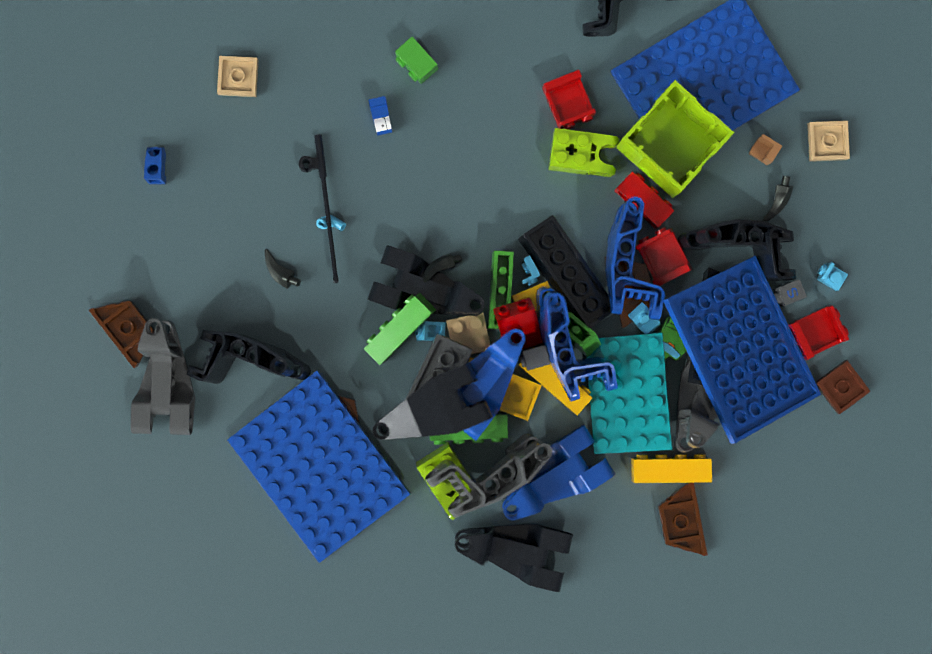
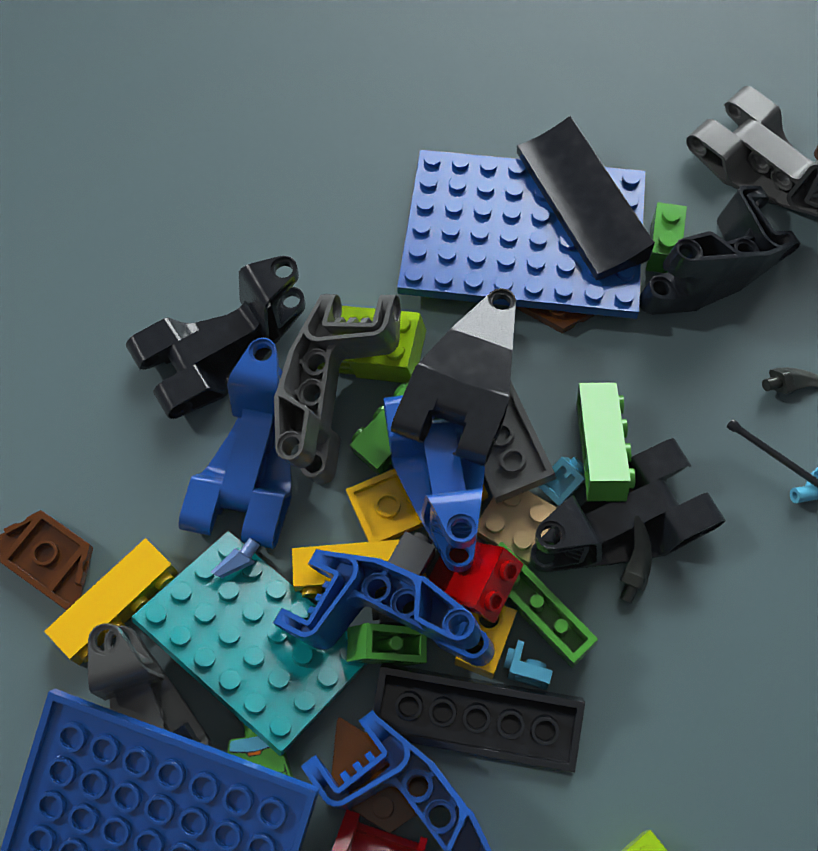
camera: 135 degrees right, 20 degrees down
(259, 394) = (665, 230): none -> bright green brick
(277, 451) = (586, 200): none -> black arch
(604, 433) = (237, 559): none -> medium blue bar
(641, 319) = (330, 749): medium azure bracket -> none

